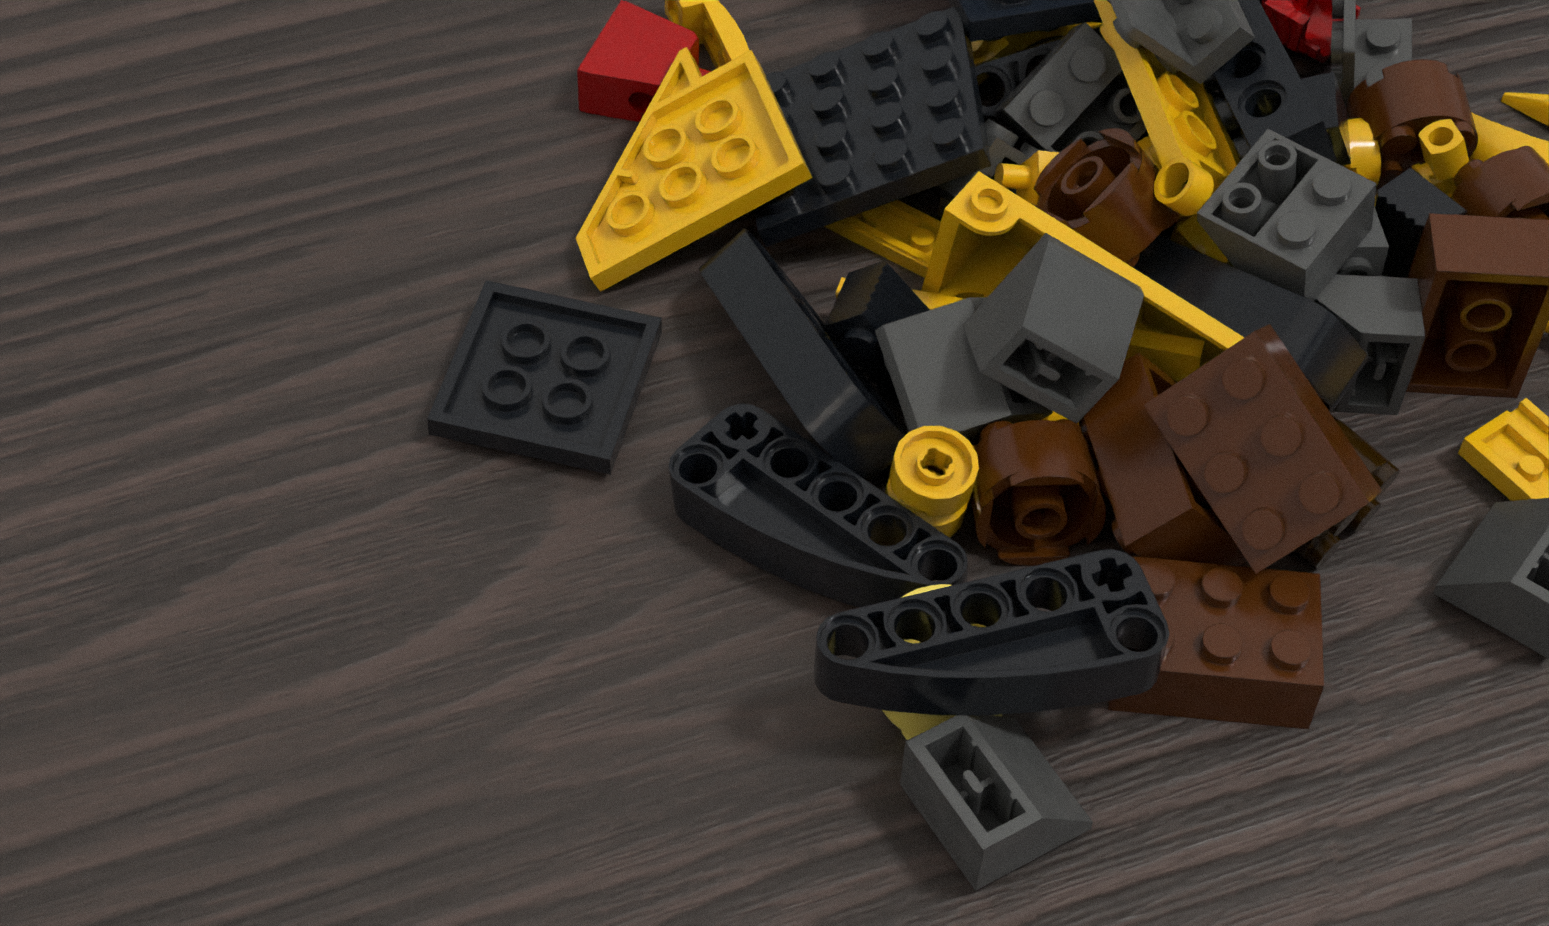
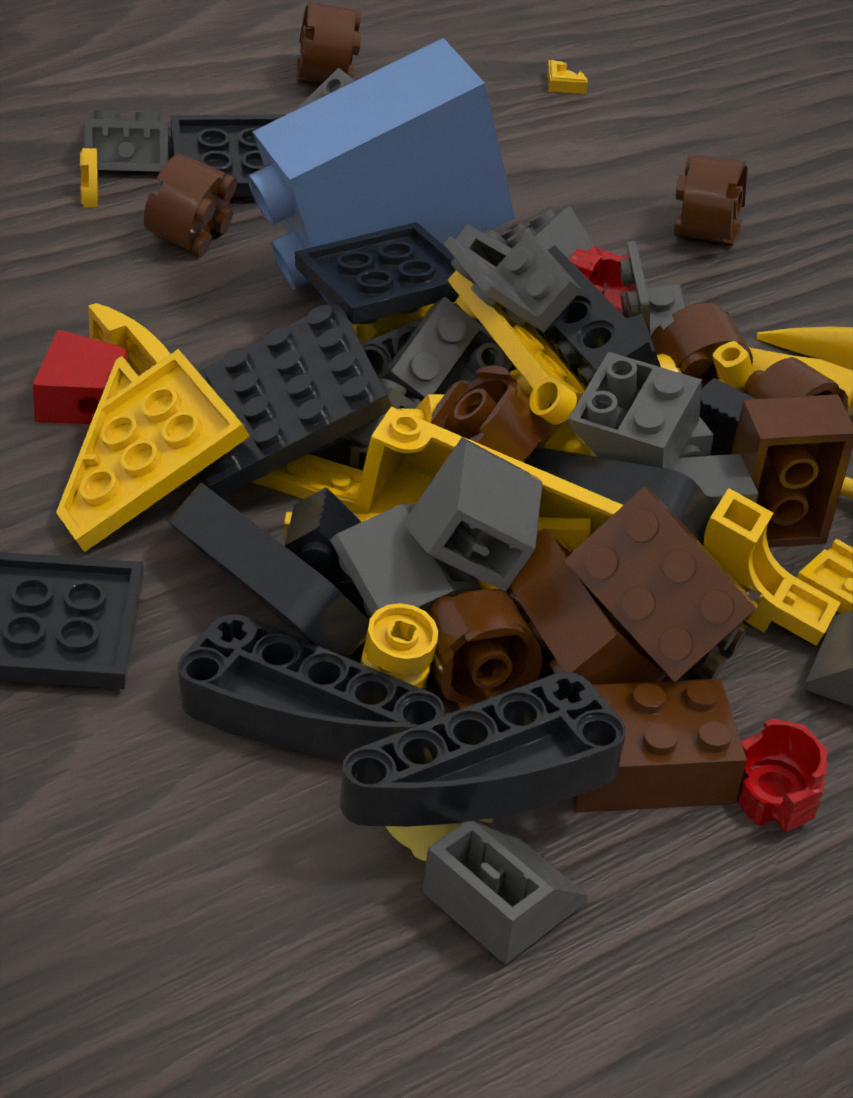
camera: 15 degrees left, 10 degrees down
(1369, 707) = (783, 775): none -> red hair
(1388, 408) = (740, 545): none -> yellow arch

